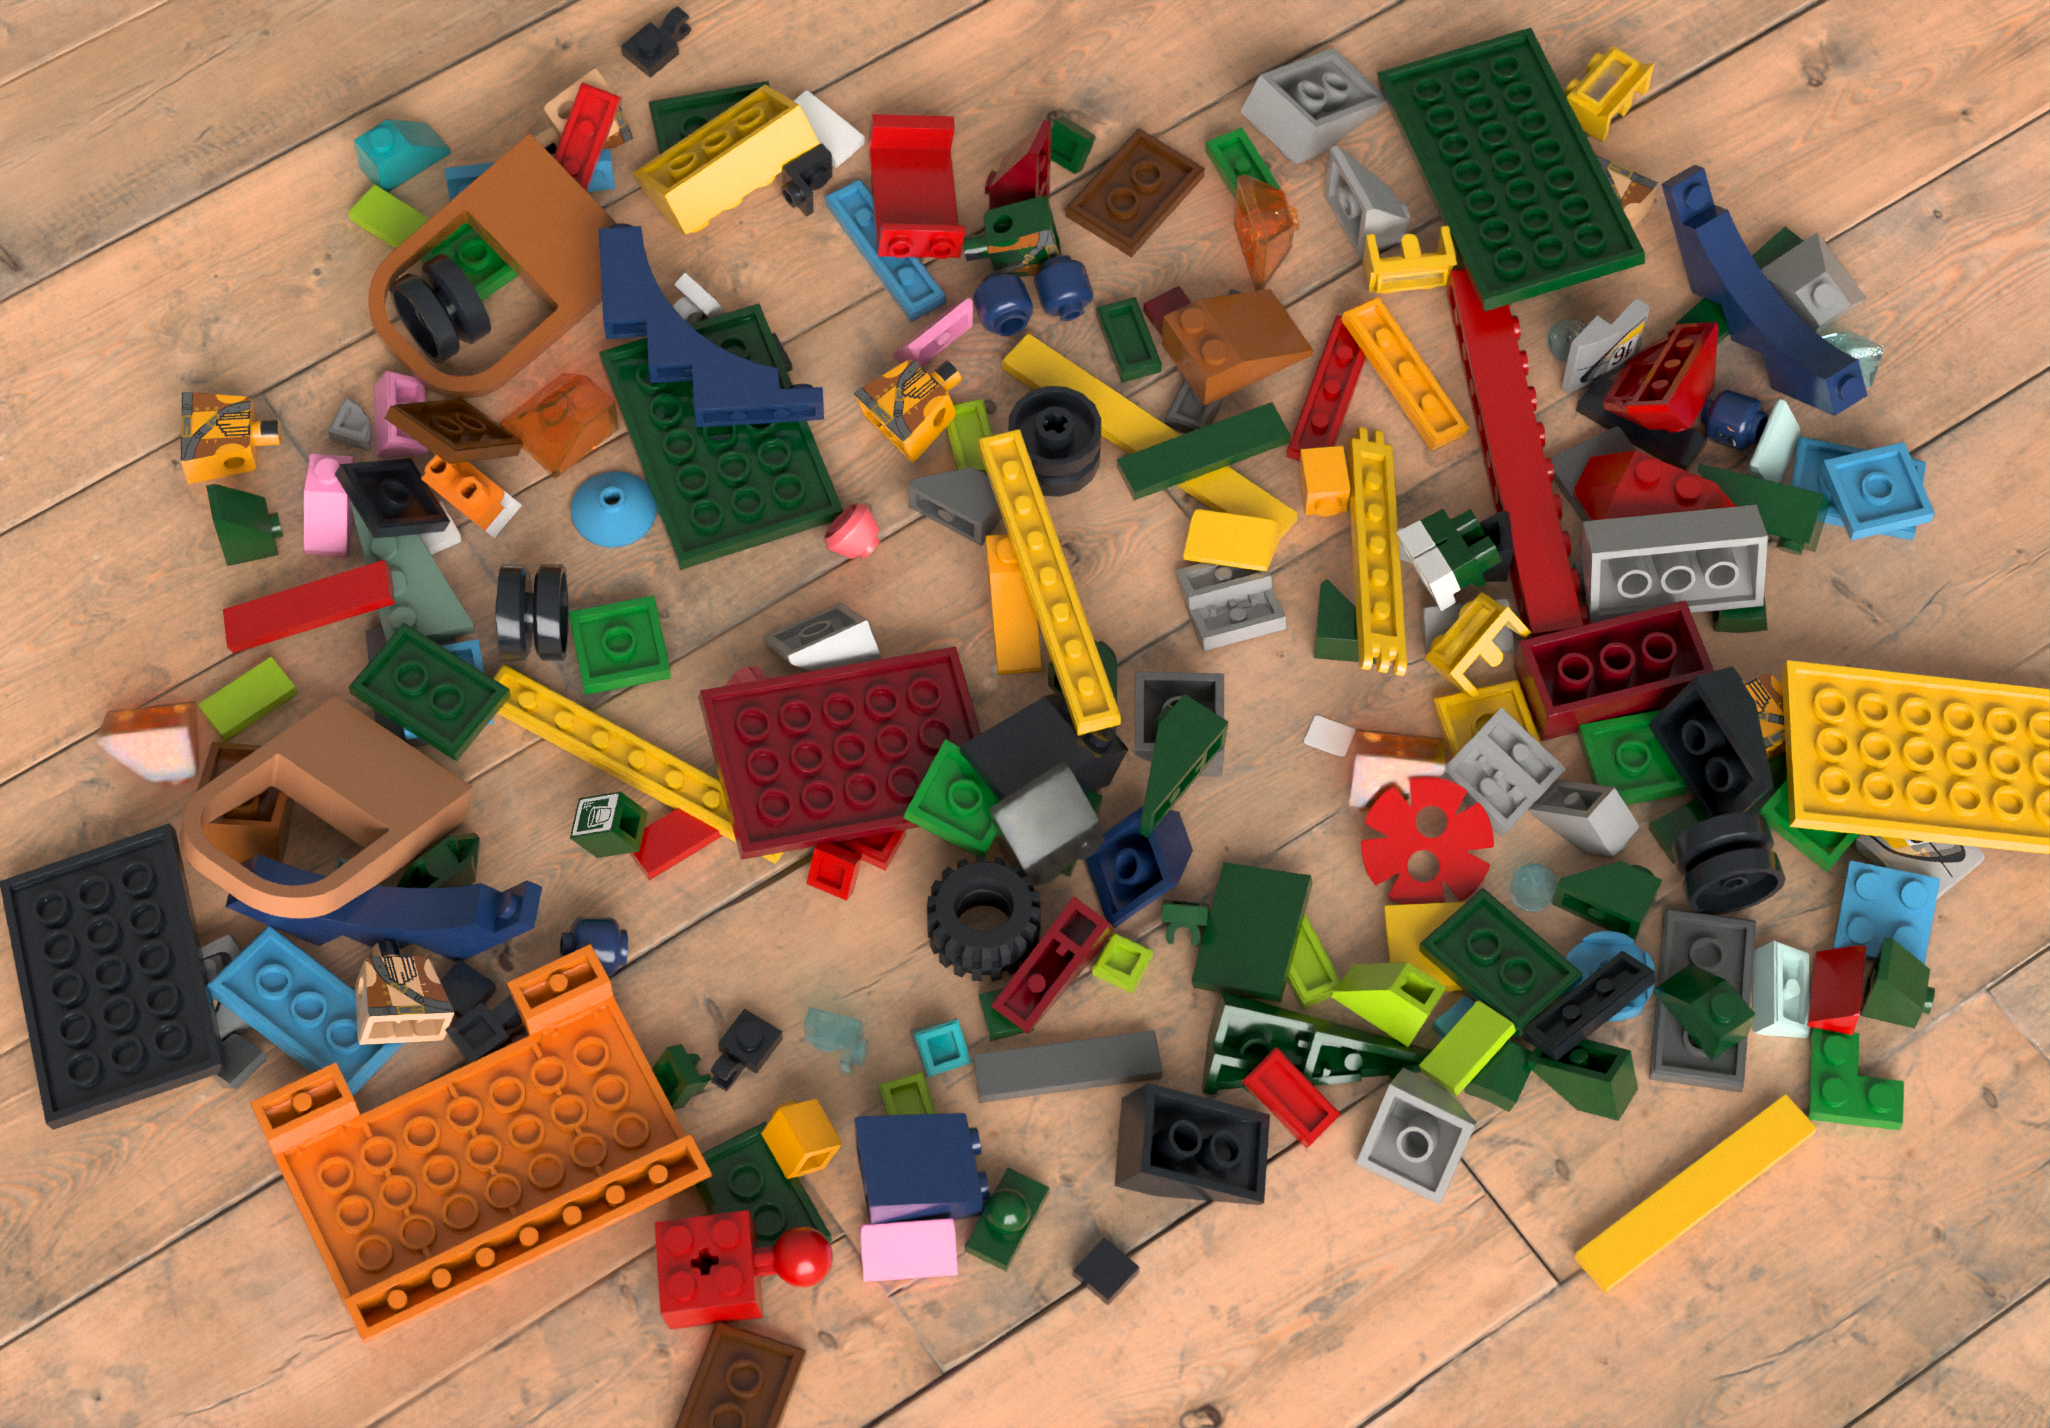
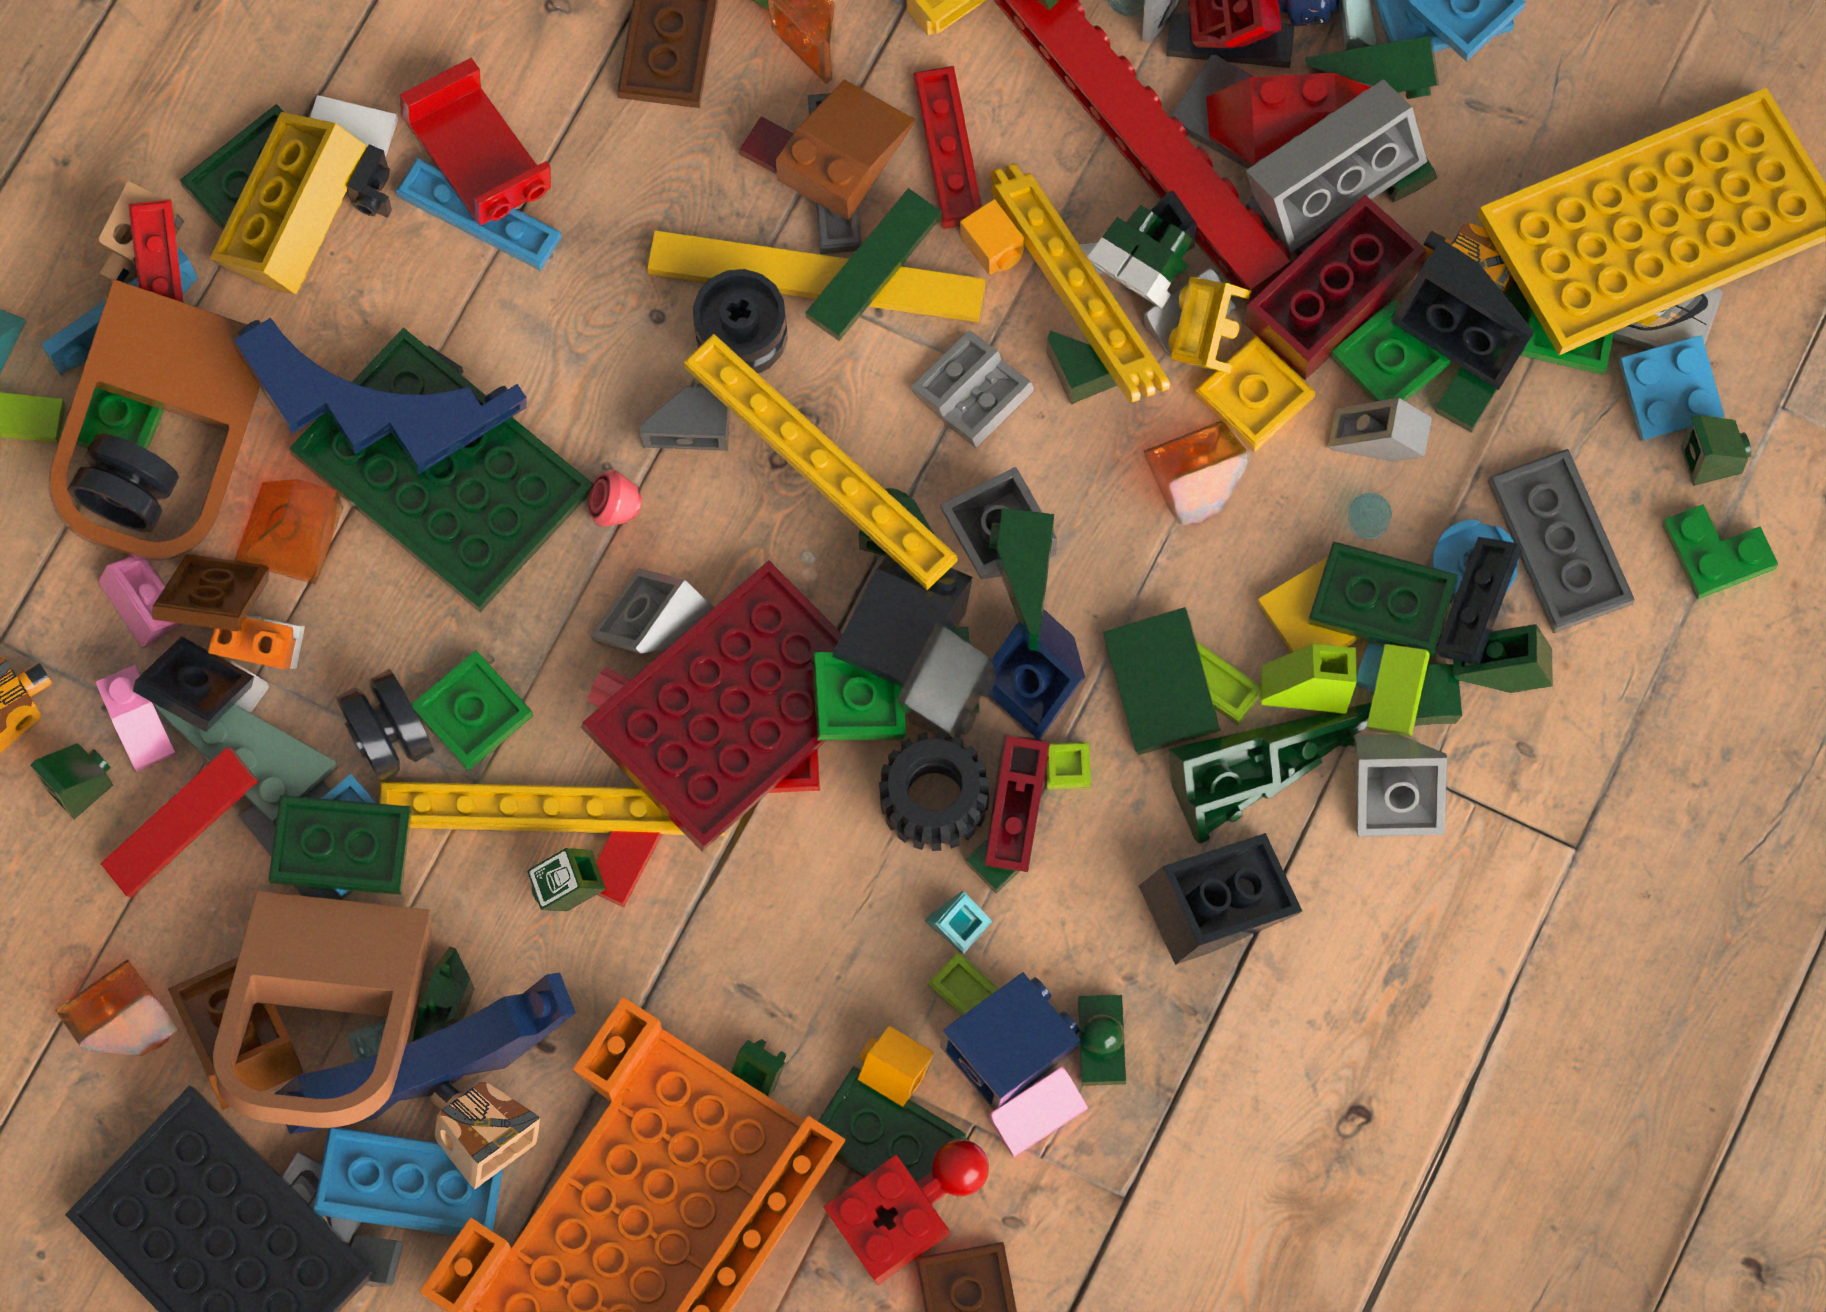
camera: 25 degrees left, 10 degrees up
(247, 699) = (173, 933): lime tile -> none
(351, 426) = (104, 631): light grey tile -> none
(466, 988) = (530, 1088): black tile -> none
(483, 1030) = (568, 1119): black plate -> none
(605, 937) = (615, 982): dark blue head -> none
(617, 523) = (388, 604): dark azure dish -> none
(655, 47) = (150, 122): black plate -> none
(695, 301) = (343, 354): white tile -> none
(744, 1045) = (796, 1008): black plate -> none
(834, 870) = (781, 815): red tile -> none
(836, 1032) = (865, 959): clear light blue bracket -> none
(910, 405) = (595, 354): torso -> none
(937, 334) = (572, 274): bright pink slope -> none
(964, 431) = (659, 355): lime tile -> none
(1003, 303) = (618, 214): dark blue head -> none
(1011, 610) = (791, 498): light orange slope -> none
(1016, 237) = (597, 148): dark green torso -> none
(1023, 170) = (567, 87): dark red slope -> none
(1063, 287) = (662, 171): dark blue head -> none
(1067, 1066) = (1074, 881): dark grey tile -> none
(1070, 144) = (586, 29): dark green tile -> none
(1106, 1271) = (1208, 1040): black tile -> none
(1128, 339) = (744, 189): dark green tile -> none
(1184, 915) = (1098, 695): dark green tile -> none
(1231, 540) = (945, 336): yellow slope -> none
(1291, 1097) = (1276, 809): red tile -> none
(1329, 736) = (1124, 468): white sticker -> none
(1398, 821) = (1230, 520): piece -> none
(1405, 373) = (1004, 98): light orange tile -> none
(1503, 770) = (1290, 427): light grey slope -> none
(1610, 896) = (1441, 491): dark green slope -> none
(1694, 1193) = (1644, 713): yellow tile -> none
(1707, 1009) = (1571, 550): dark green slope -> none
(1728, 863) = (1524, 413): black wheel -> none
(1780, 991) = (1619, 499): light aqua slope -> none
(1837, 989) = (1666, 474): red slope -> none

